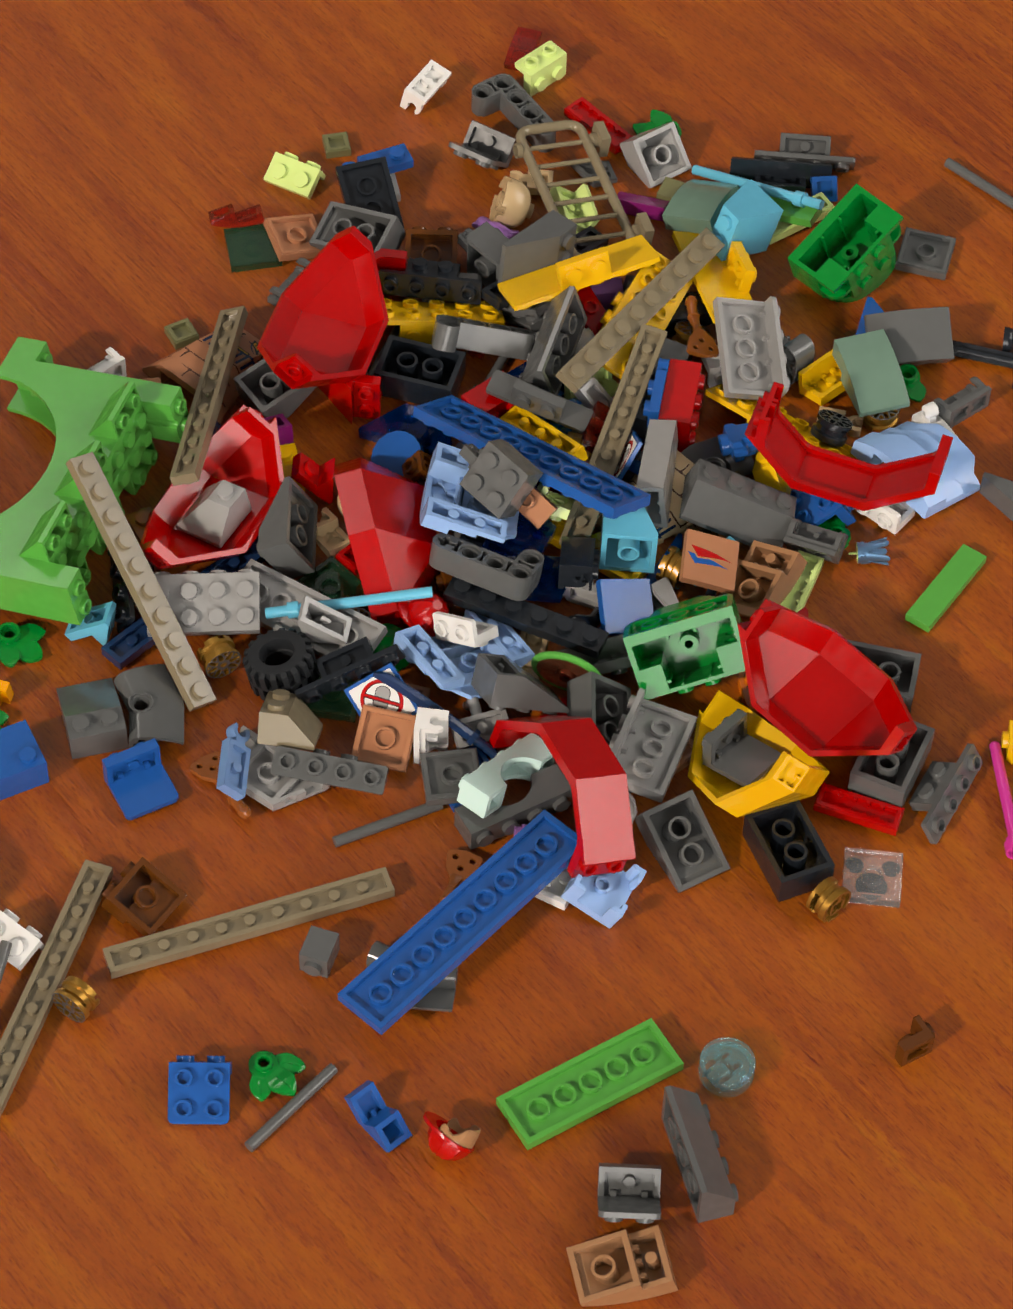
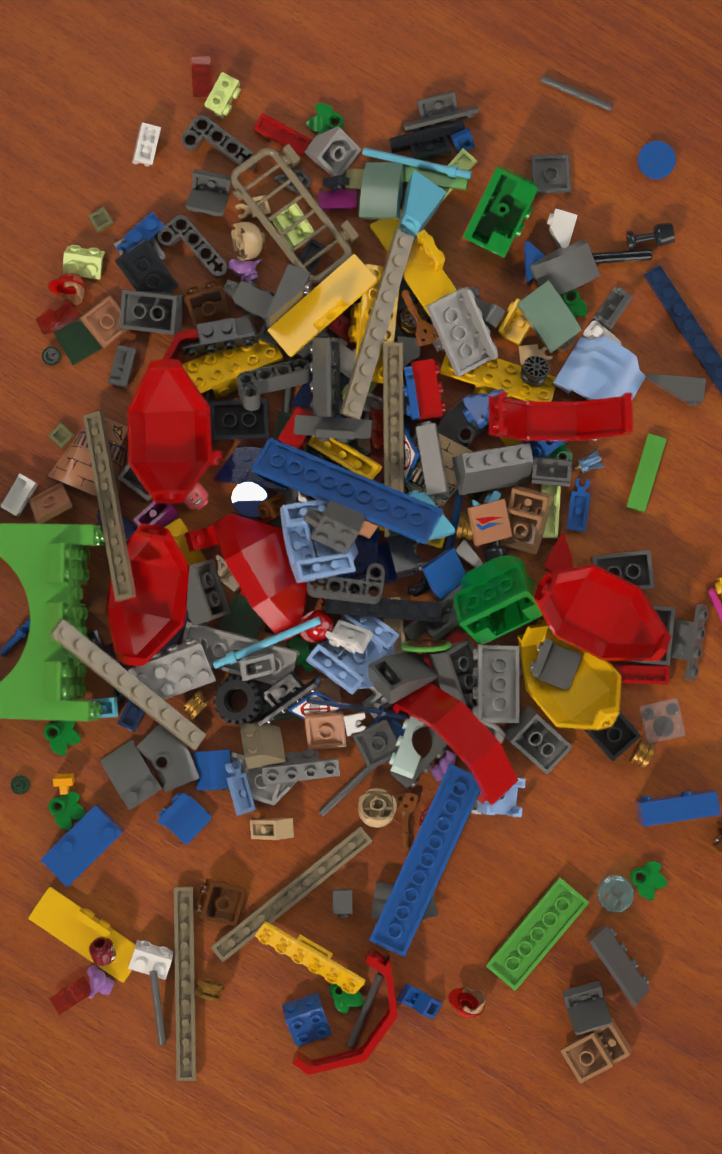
camera: 15 degrees left, 35 degrees up
(204, 738) = (212, 769): none -> blue slope
(209, 253) = (51, 356): none -> tile
(216, 513) = (150, 597): light grey slope -> none
(242, 990) = (311, 955): none -> yellow bracket
(258, 832) = (272, 828): none -> tan slope
(263, 187) = (68, 287): none -> red piece
(284, 1136) = (360, 1054): none -> red panel
(324, 436) = (197, 497): none -> coral head
(417, 848) = (377, 808): none -> tan cylinder
(434, 176) = (202, 245): none -> dark grey beam
(647, 181) = (336, 182): none -> black plate
(786, 1070) = (650, 881): none -> green plate
(838, 596) = (578, 508): none -> blue plate
(858, 975) = (677, 807): none -> blue brick
(923, 294) = (561, 227): none -> white slope

